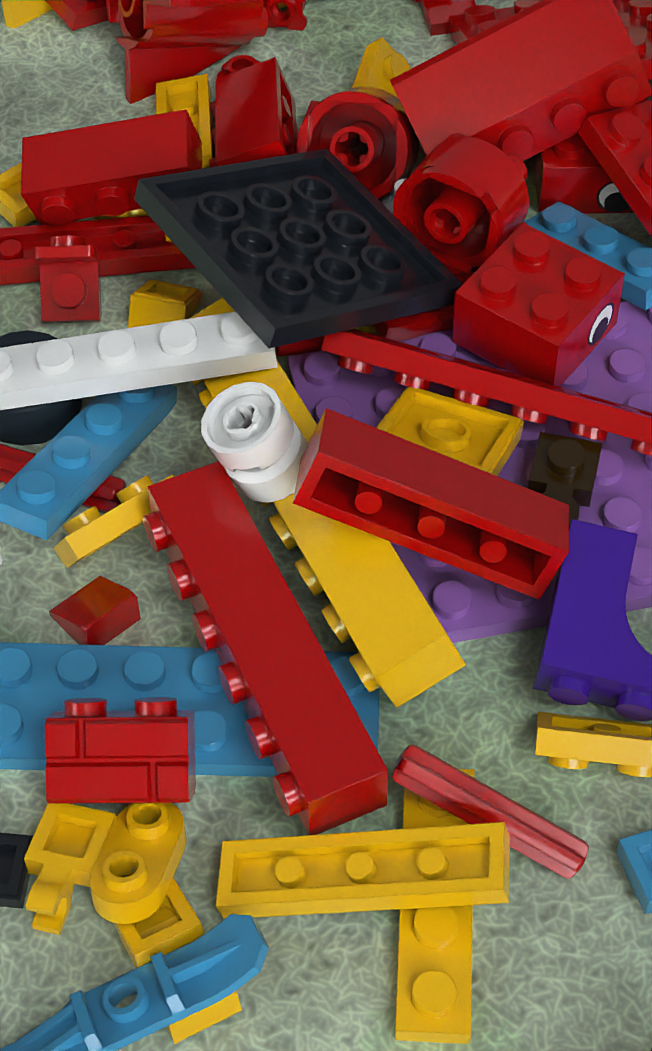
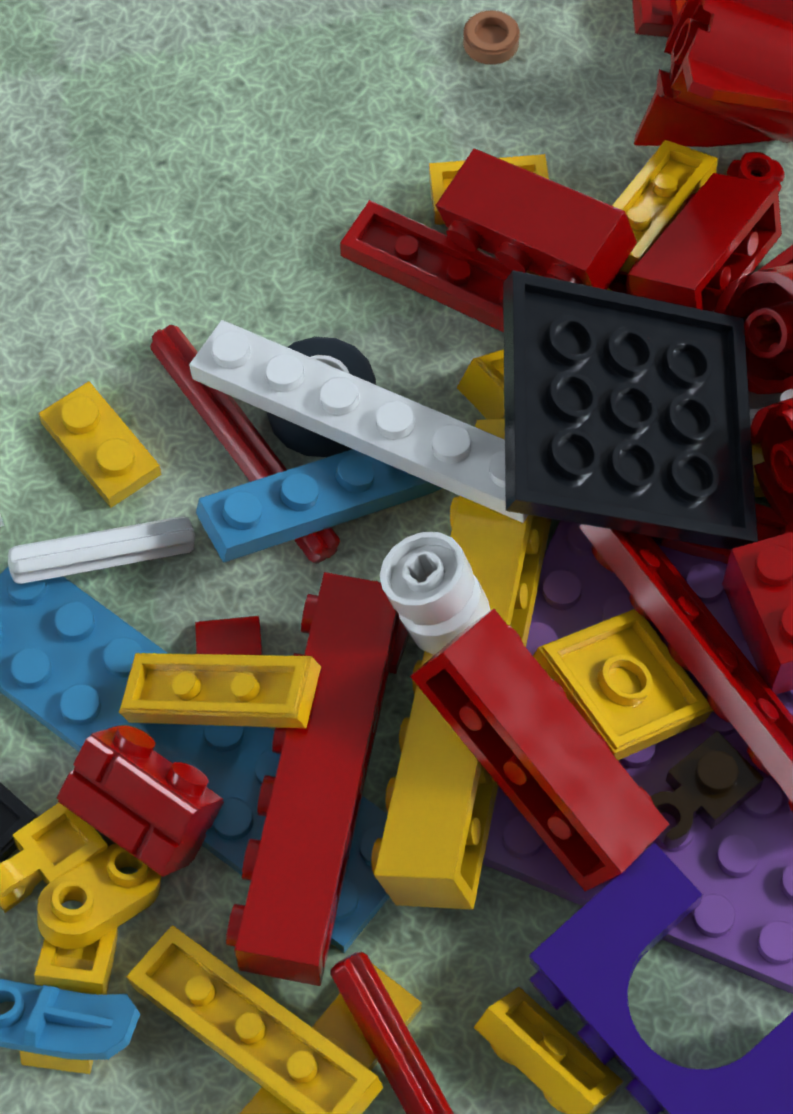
camera: 35 degrees right, 10 degrees up
(69, 280) = (431, 312): red bracket -> none
(93, 531) = (275, 575): yellow plate -> none
(127, 625) = (220, 690): none -> yellow tile

